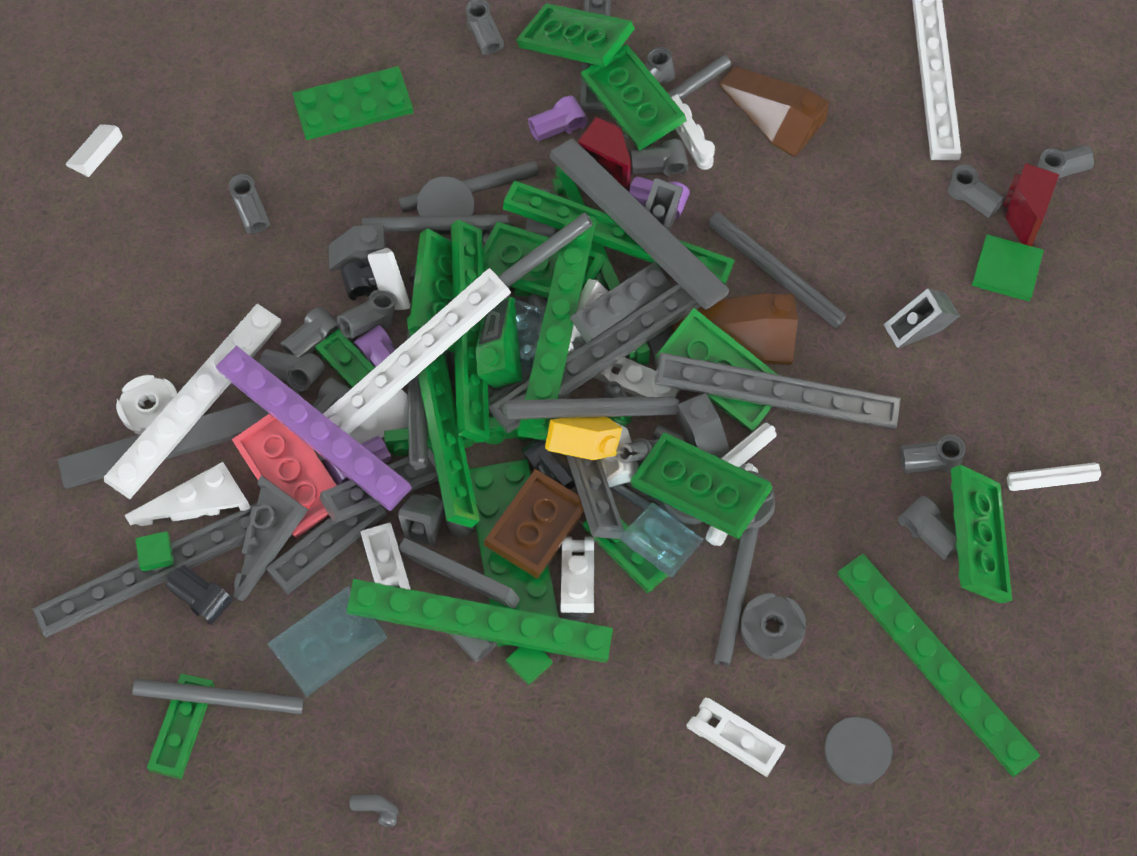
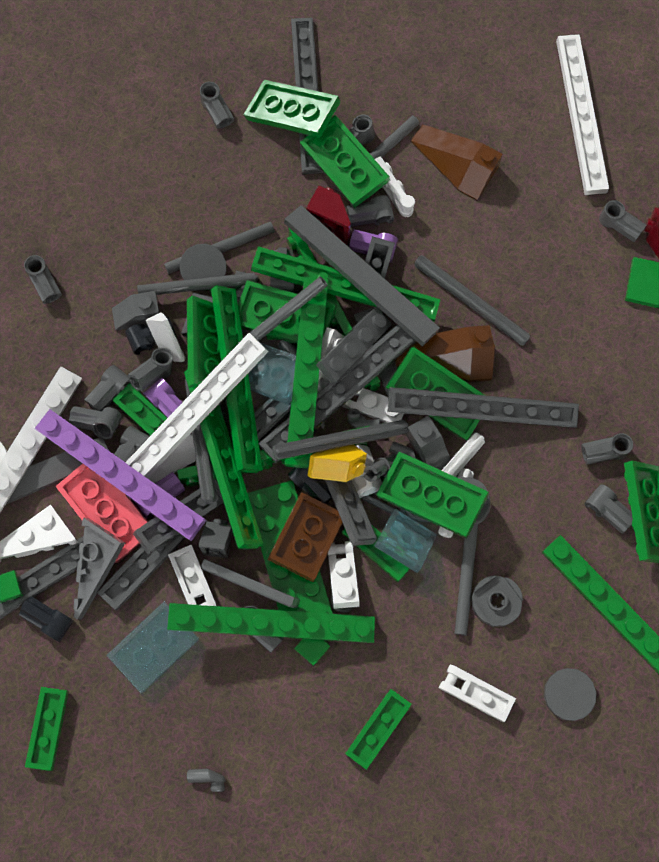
camera: 10 degrees left, 10 degrees up
(217, 696) = (72, 703): dark grey piece -> none
(352, 102) = (116, 180): green plate -> none
(499, 346) = (261, 393): green slope -> none
(565, 116) = (288, 182): medium lavender piece -> none
(602, 768) = (378, 729): none -> green plate
(921, 318) = (589, 334): dark grey slope -> none

